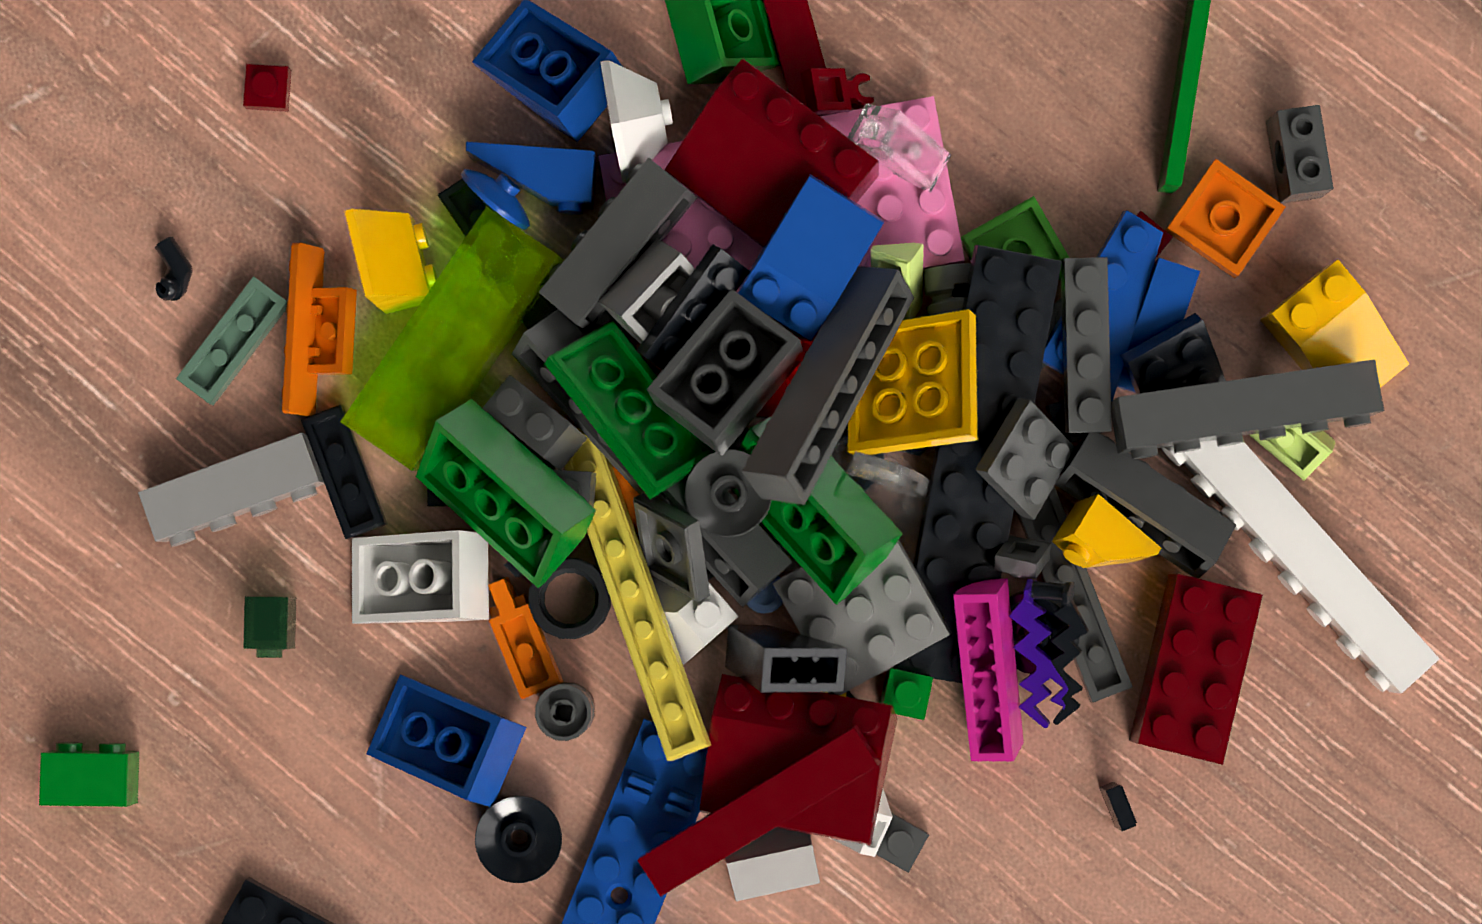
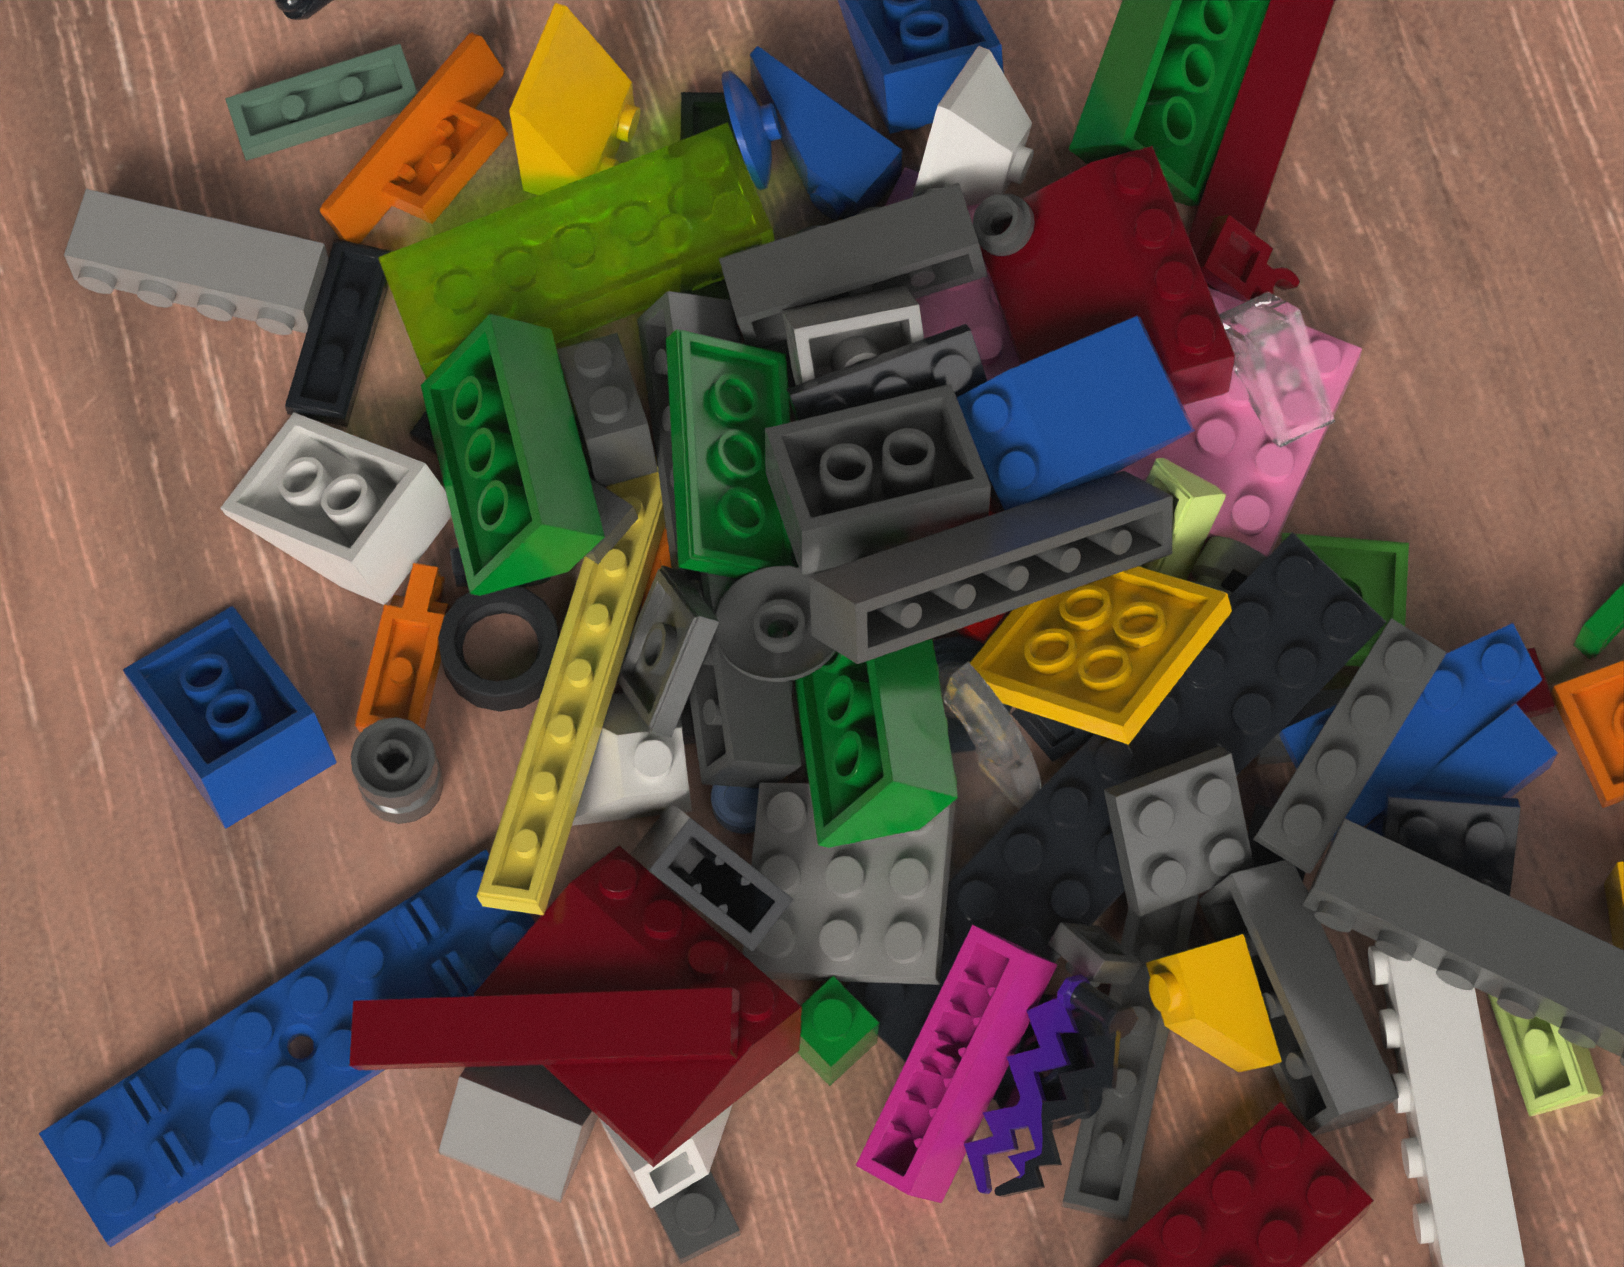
camera: 35 degrees right, 15 degrees down
(269, 625) = (123, 442): clear green brick -> none
(518, 861) = (206, 865): black dish -> none
(676, 164) = (991, 216): none -> dark grey plate

